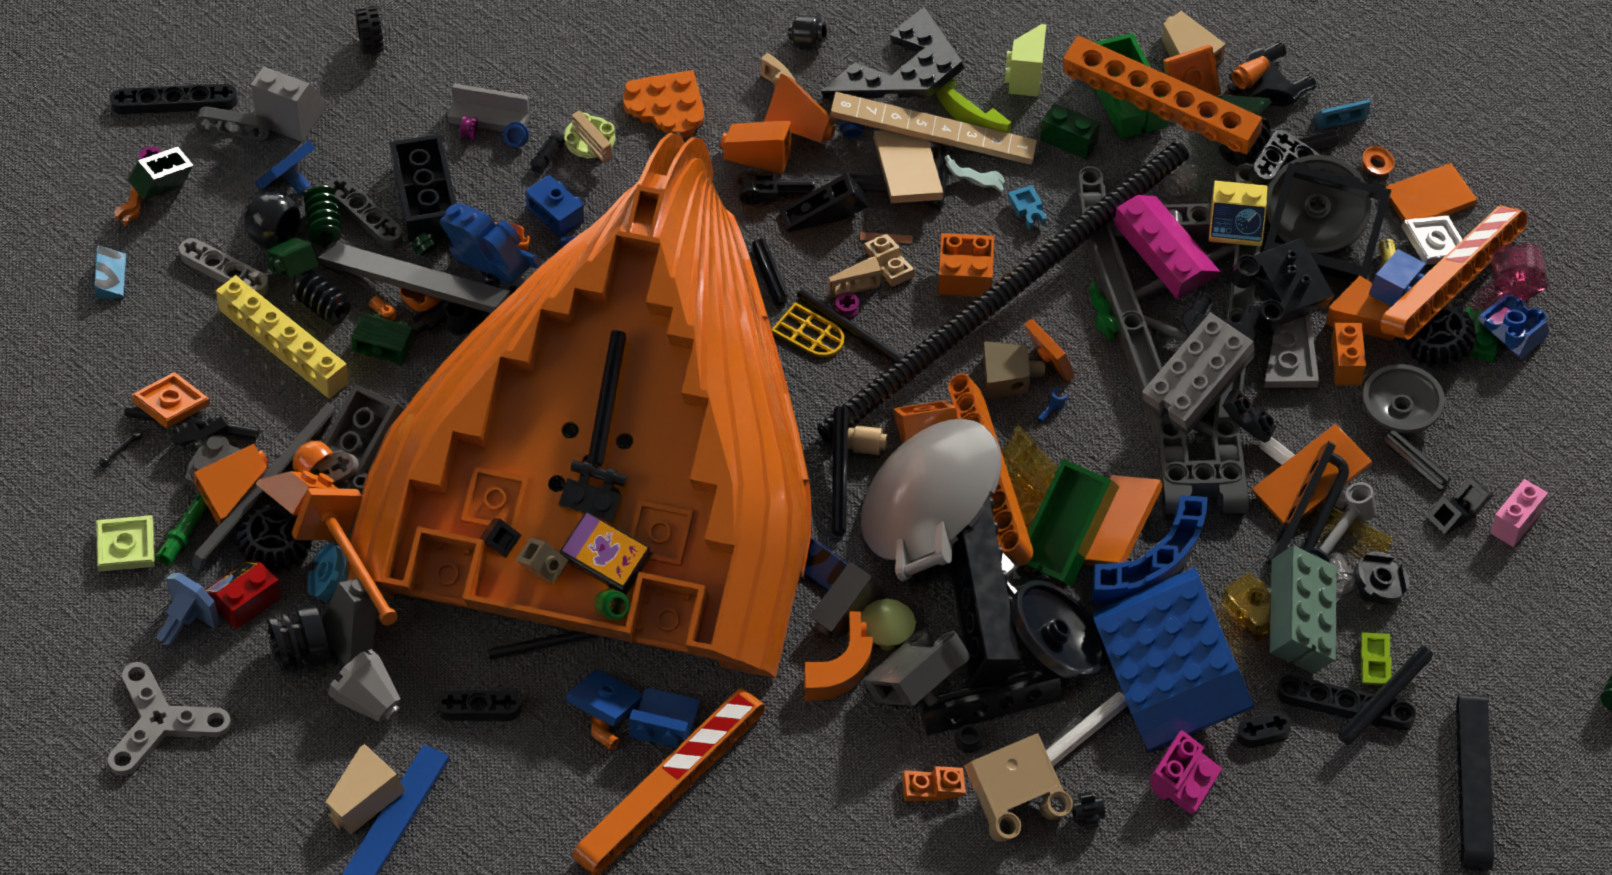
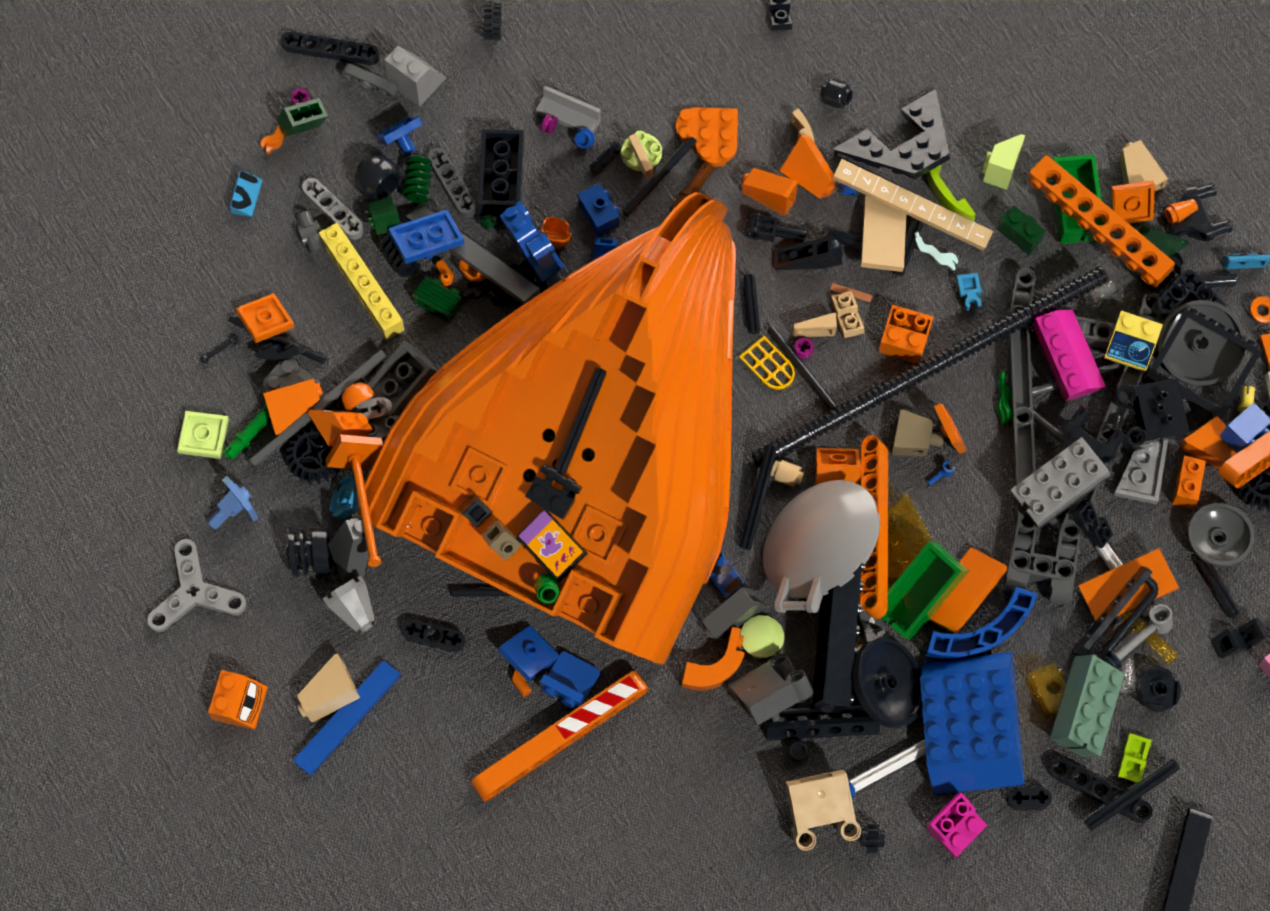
camera: 15 degrees right, 15 degrees up
(202, 298) = (309, 232): none -> dark grey axle
(244, 592) = (279, 497): red slope -> none
(248, 827) = (237, 700): none -> orange slope
(352, 267) = (426, 236): none -> blue plate
(618, 157) = (659, 176): none -> black piece
(933, 786) = (760, 785): orange slope -> none

